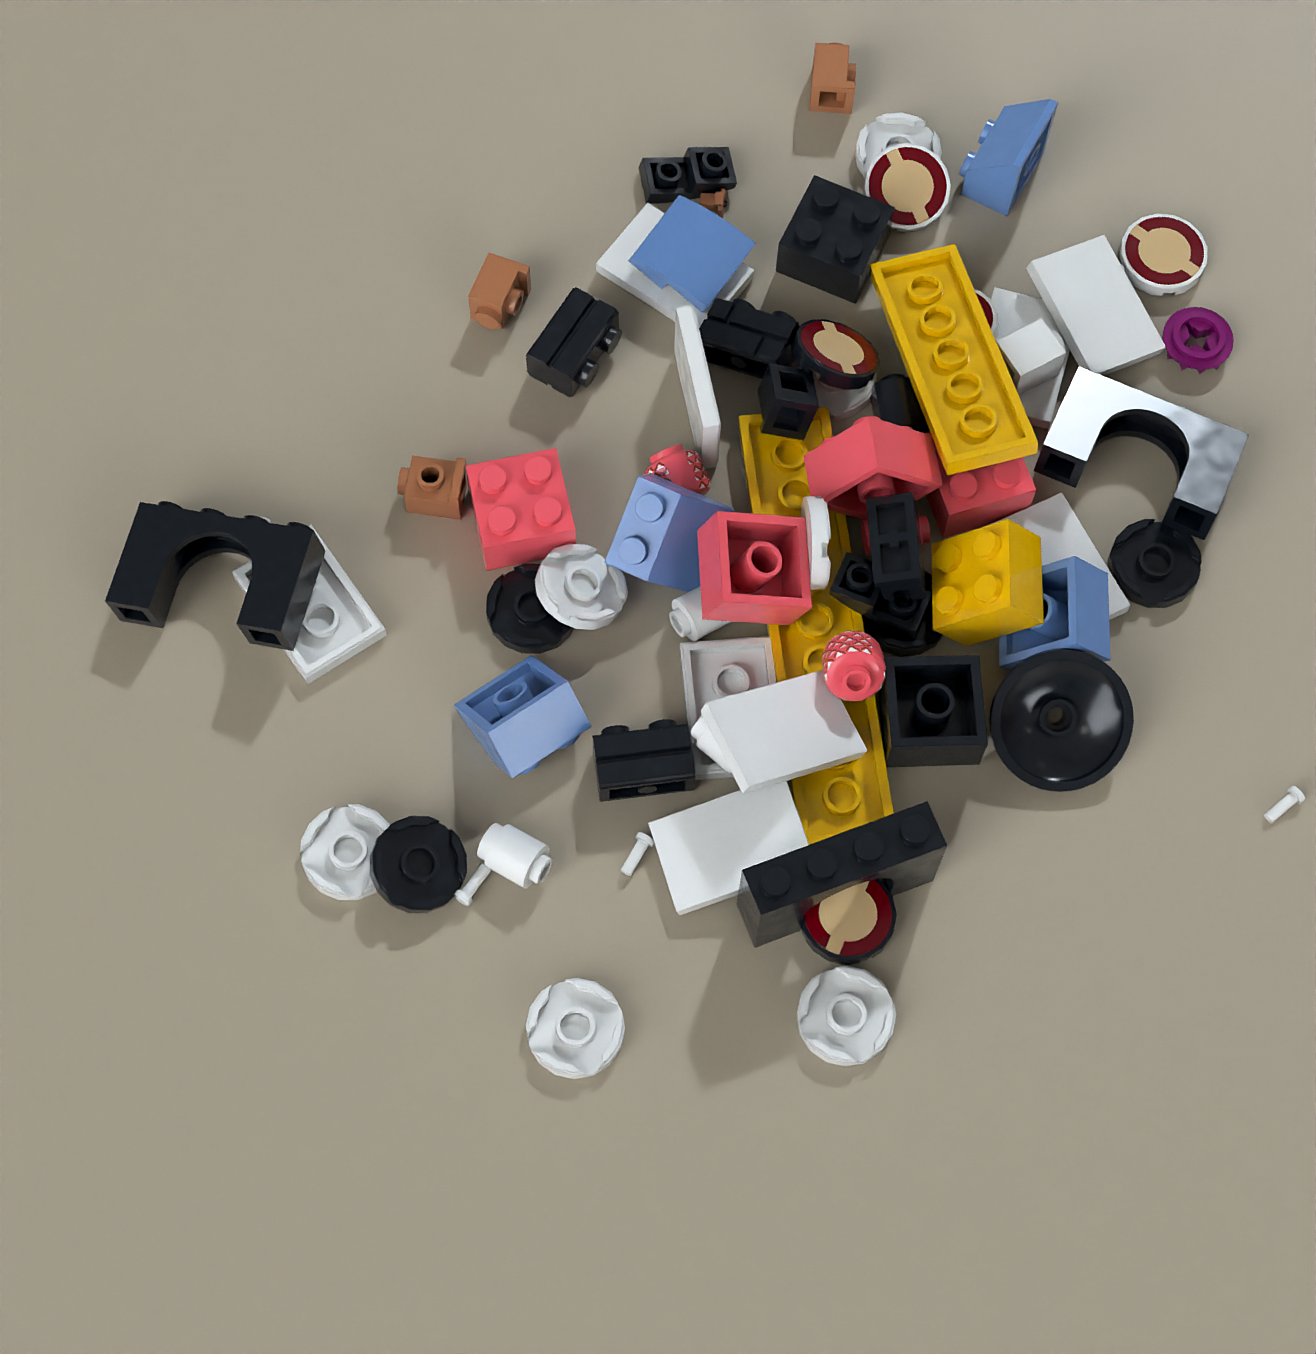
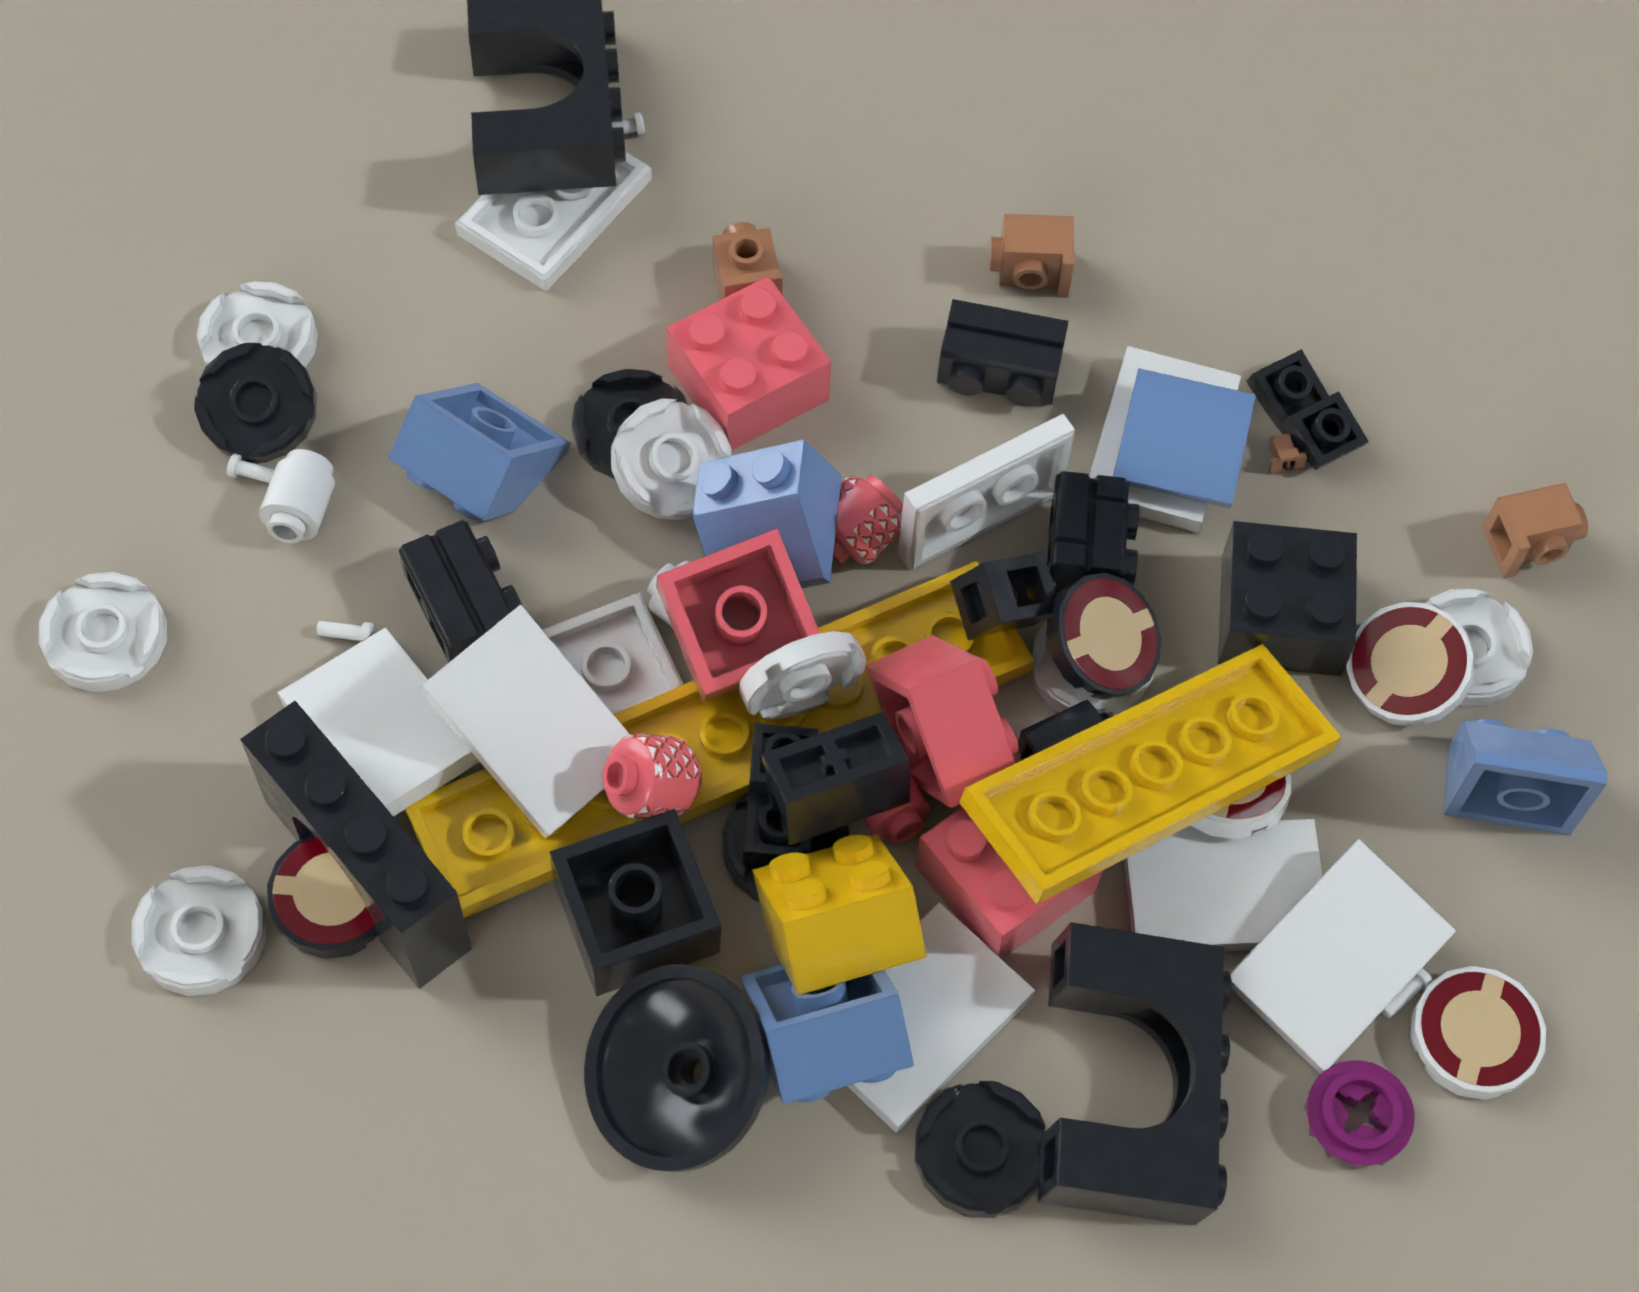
camera: 70 degrees right, 5 degrees down
(1032, 355) = (1211, 880): white brick -> none

